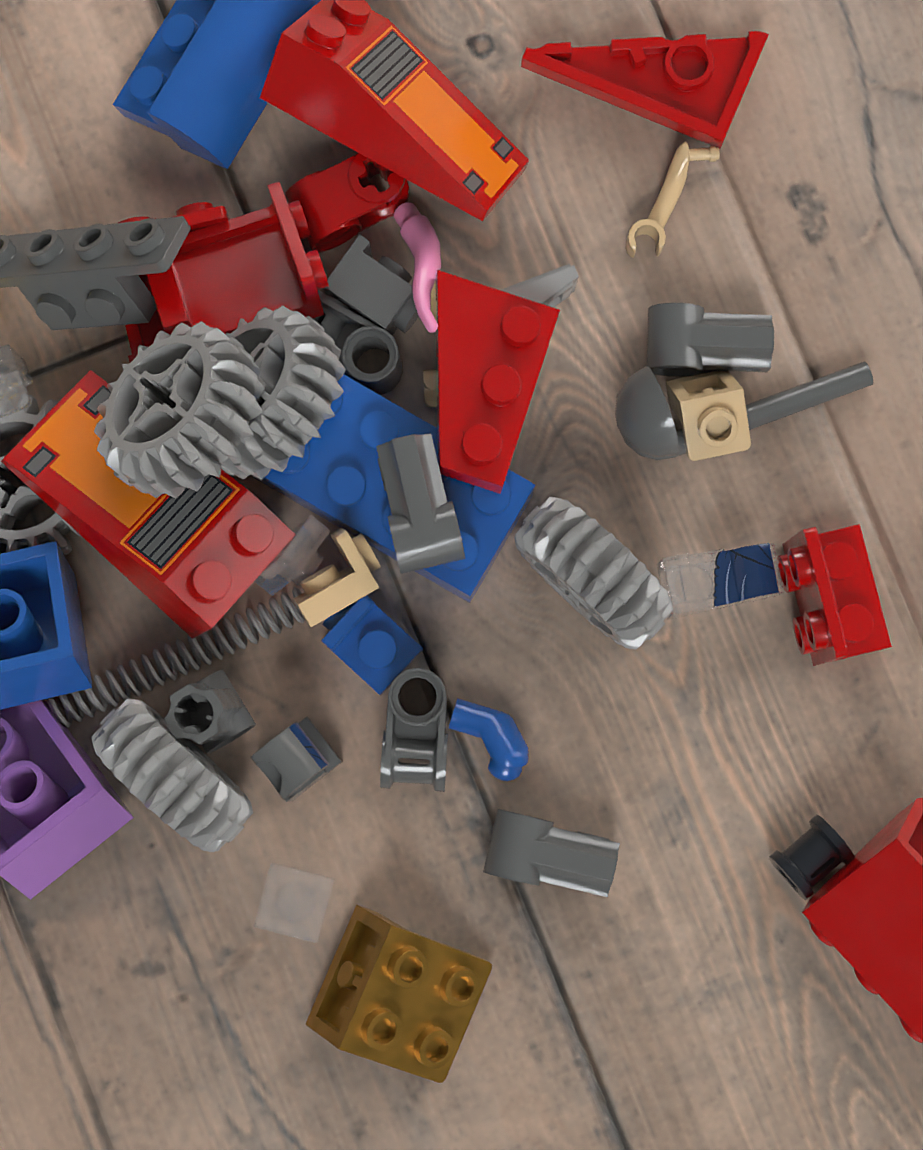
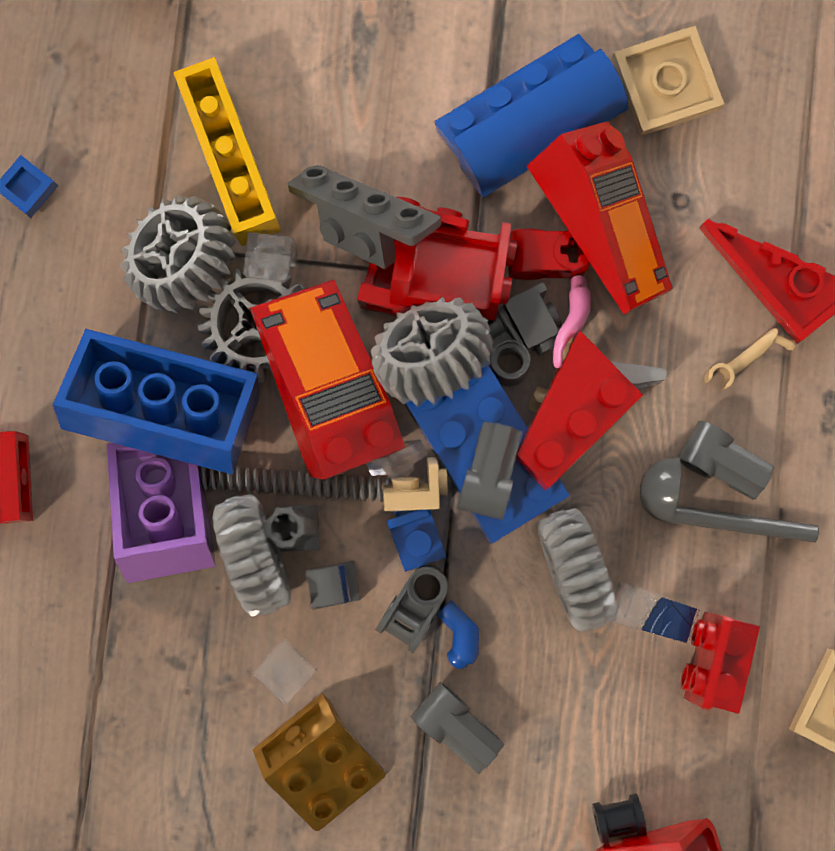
camera: 35 degrees right, 0 degrees up
(179, 410) = (374, 336): light grey gear -> none
(710, 414) = (703, 507): tan bracket -> none

